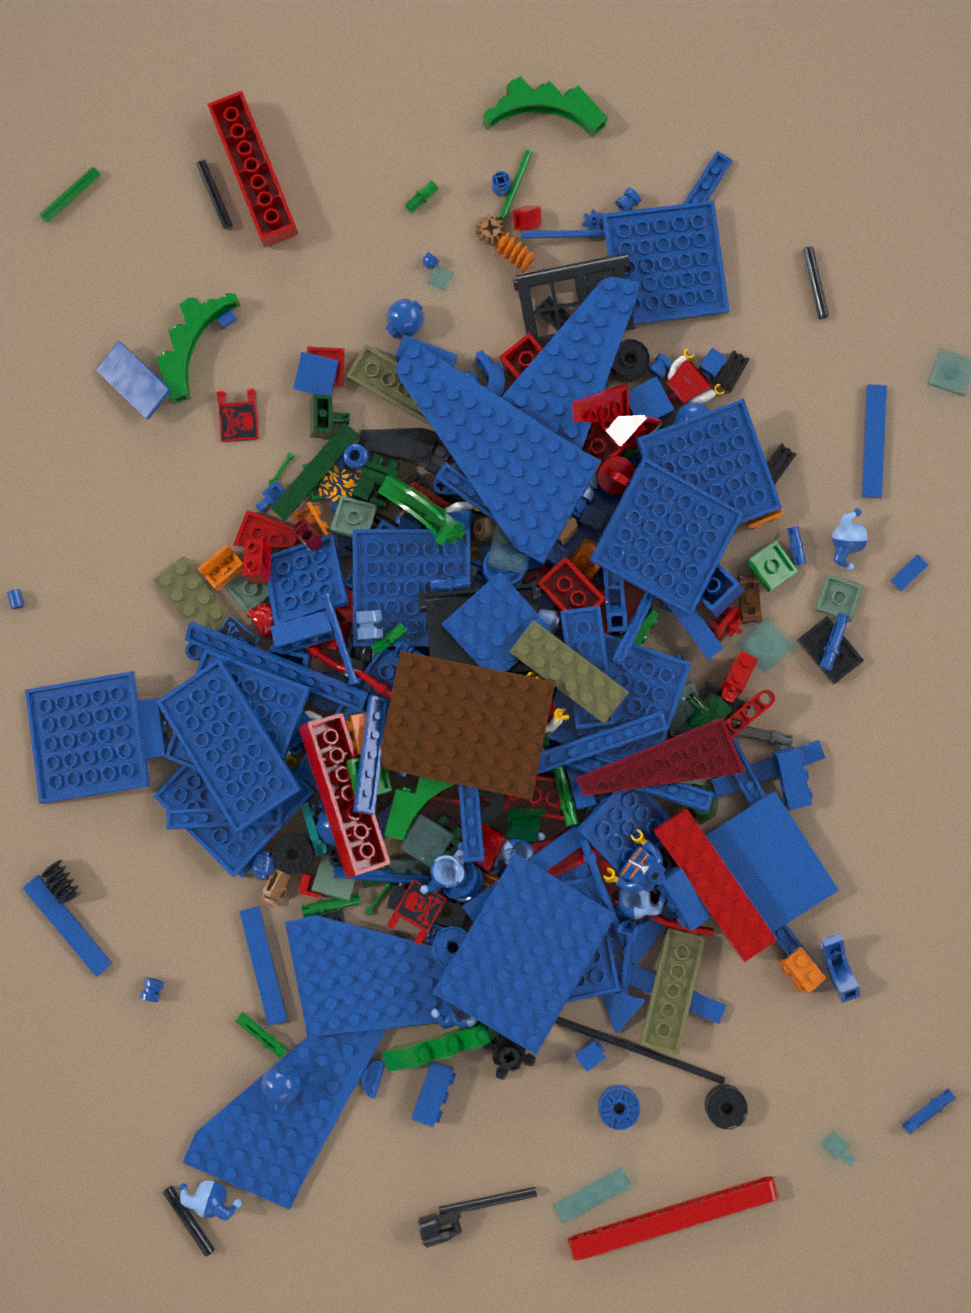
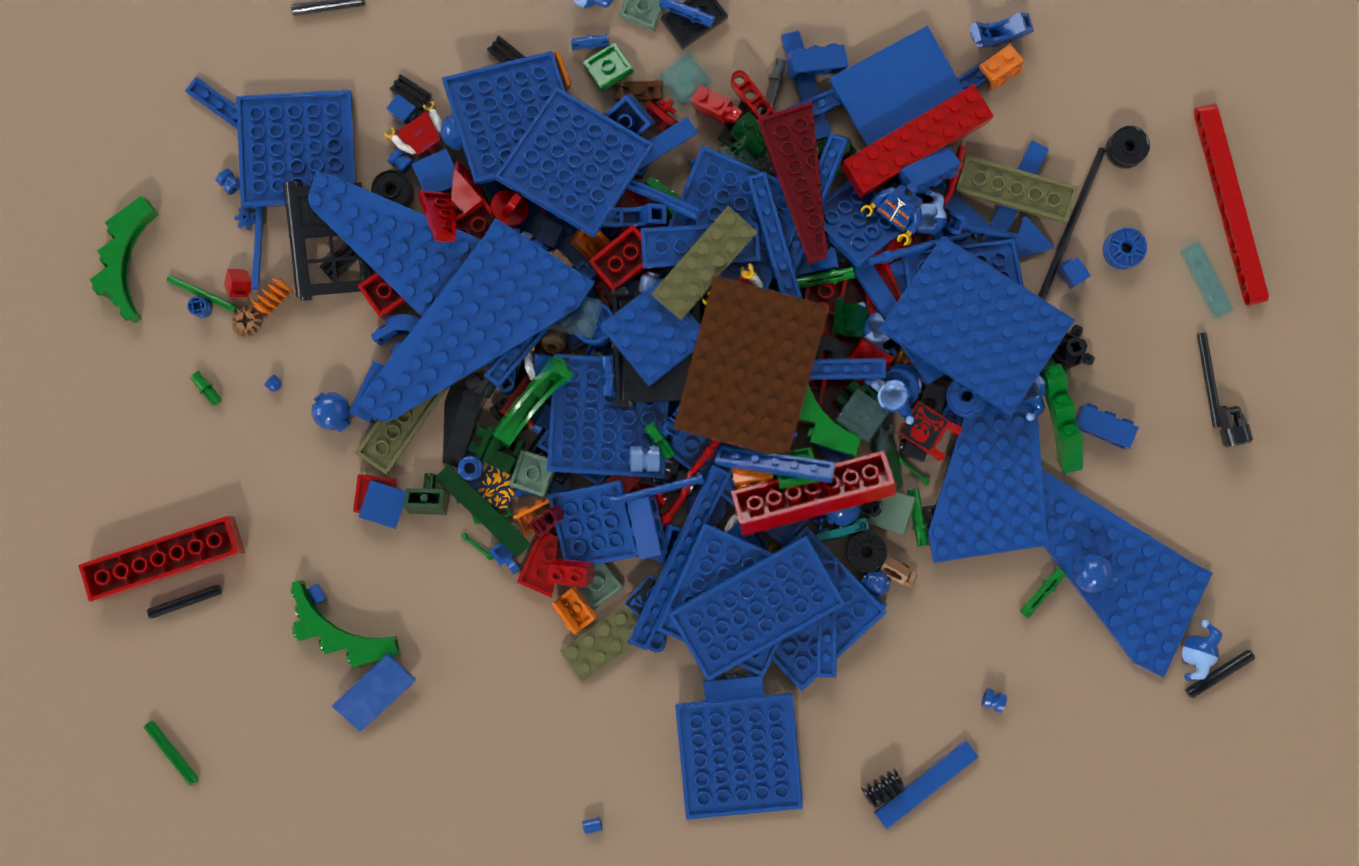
camera: 85 degrees left, 0 degrees up
(238, 419) = (422, 587): flag -> none
(262, 618) = (629, 568): red hair -> none
(263, 965) = (974, 588): blue tile -> none
(307, 884) = (898, 539): red panel -> none
(371, 1077) = (1086, 485): blue tile -> none
(384, 876) = (893, 460): blue axle -> none
(440, 277) = (291, 374): clear light blue tile -> none
(837, 1147) = (1169, 47): clear light blue plate -> none

